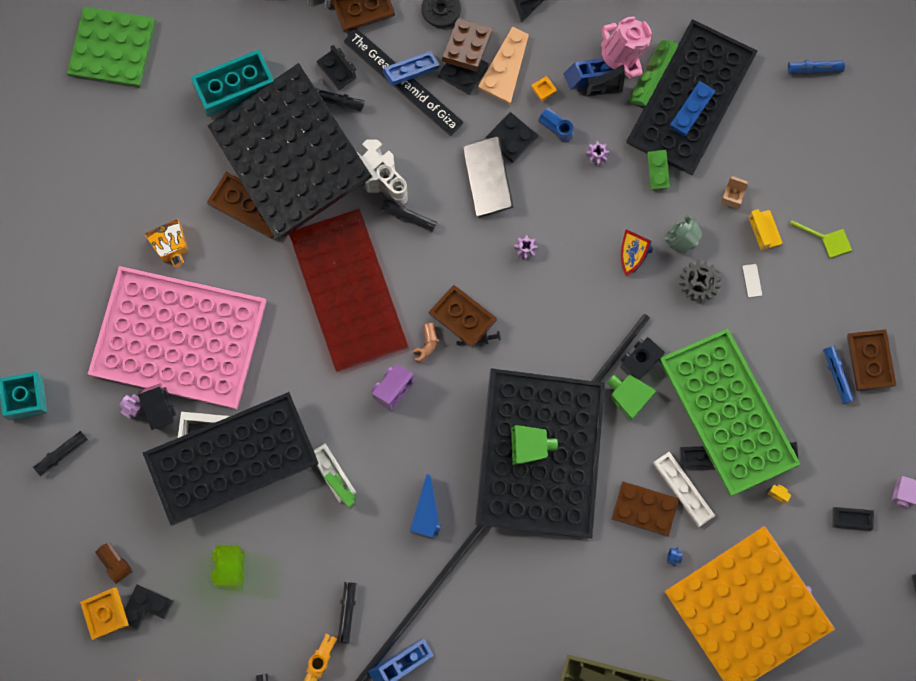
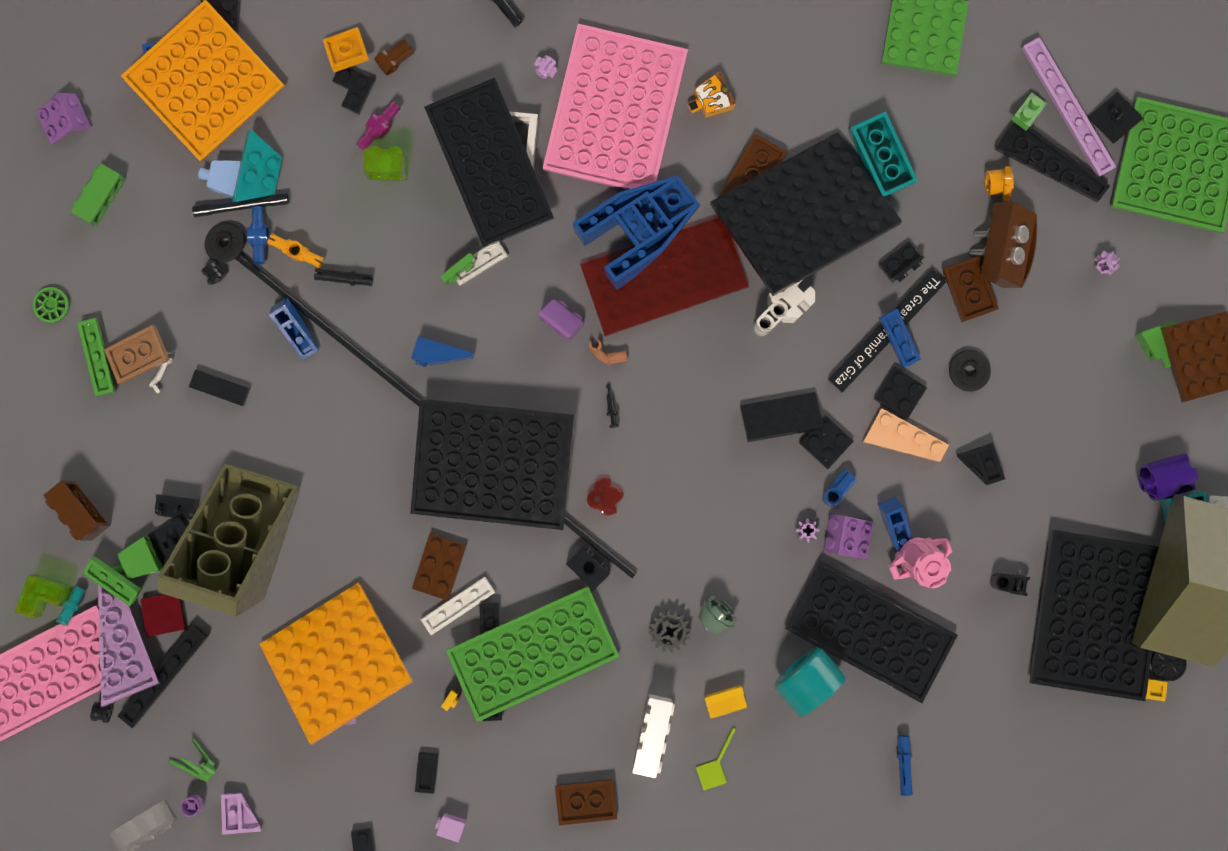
camera: 90 degrees right, 10 degrees up
(156, 406) = (544, 90): black brick -> none
(187, 578) = (378, 126): none -> magenta pin
(289, 299) = (648, 216): none -> blue wedge
(341, 100) = (864, 270): black pin -> none
(408, 215) = (741, 335): black pin -> none
(463, 316) = (633, 389): reddish brown plate -> none
(467, 44) = (926, 396): plate -> none
(525, 252) = (711, 455): lavender gear -> none
(530, 444) = (496, 453): bright green torso -> none
(543, 89) = (878, 476): light orange plate -> none
(569, 342) = (607, 495): none -> clear red plate
(602, 117) = (848, 536): none -> medium lavender bracket
(607, 83) = (883, 546): black plate -> none
(630, 395) = (551, 555): bright green torso -> none
(634, 251) = (700, 564): shield -> none
(653, 72) = (897, 591): bright green plate -> none
(658, 169) = (789, 593): bright green plate -> none
(674, 556) = (391, 593): blue plate -> none
(692, 108) = (855, 630): blue plate -> none
(734, 192) = (763, 670): medium nougat bracket -> none
(744, 146) = (809, 681): none -> teal piece
(752, 280) = (672, 685): white sticker -> none
(802, 295) = (652, 736): none -> white wedge
(838, 374) = (577, 765): blue pin -> none

